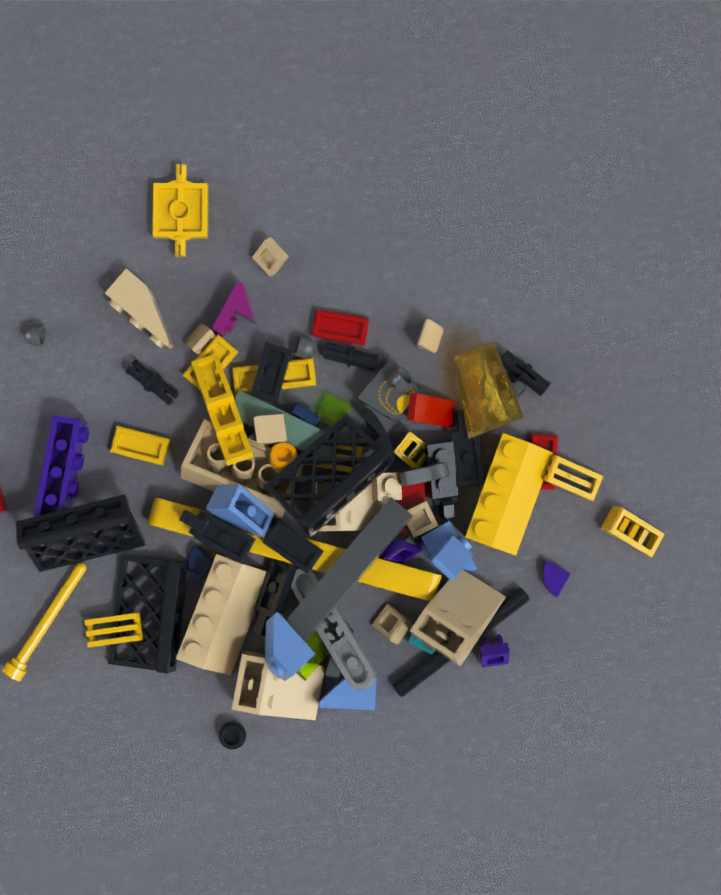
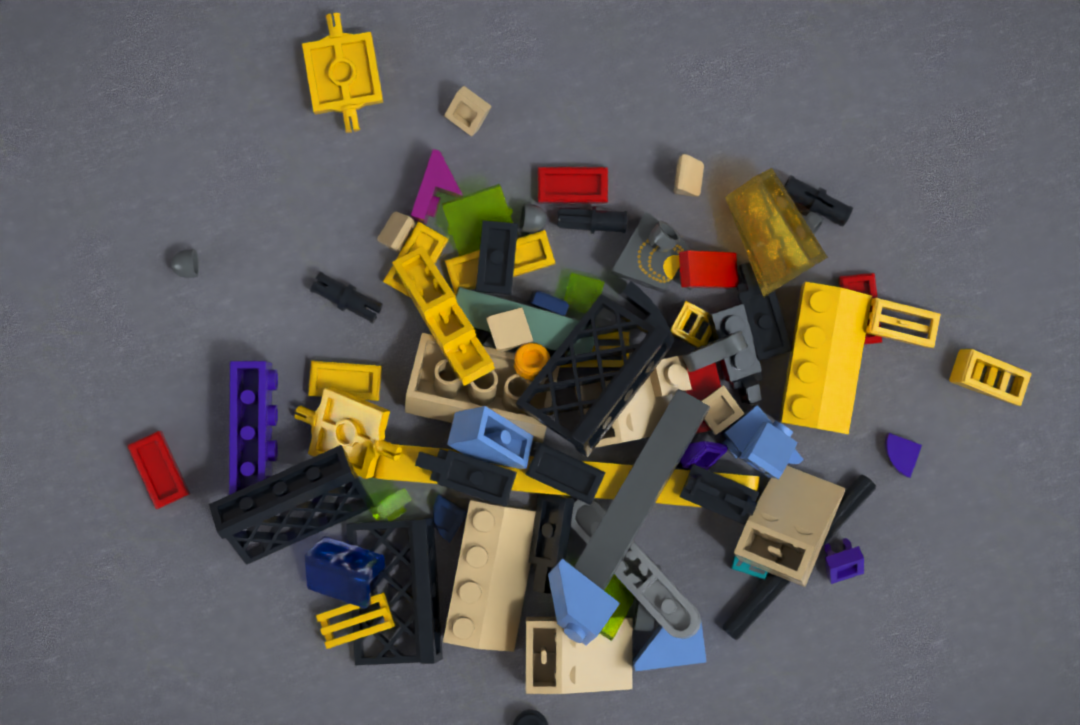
camera: 10 degrees left, 0 degrees up
(17, 666) = (240, 689): yellow piece -> none
(110, 590) = (342, 571): none -> clear blue panel
(136, 479) = (349, 423): none -> yellow plate
(137, 299) = (307, 196): tan slope -> none
(157, 547) = (391, 506): none -> clear neon green plate
(256, 333) = (467, 214): none -> clear neon green piece
(392, 624) = (707, 550): tan slope -> none
(407, 584) = (719, 494): none -> black hinge

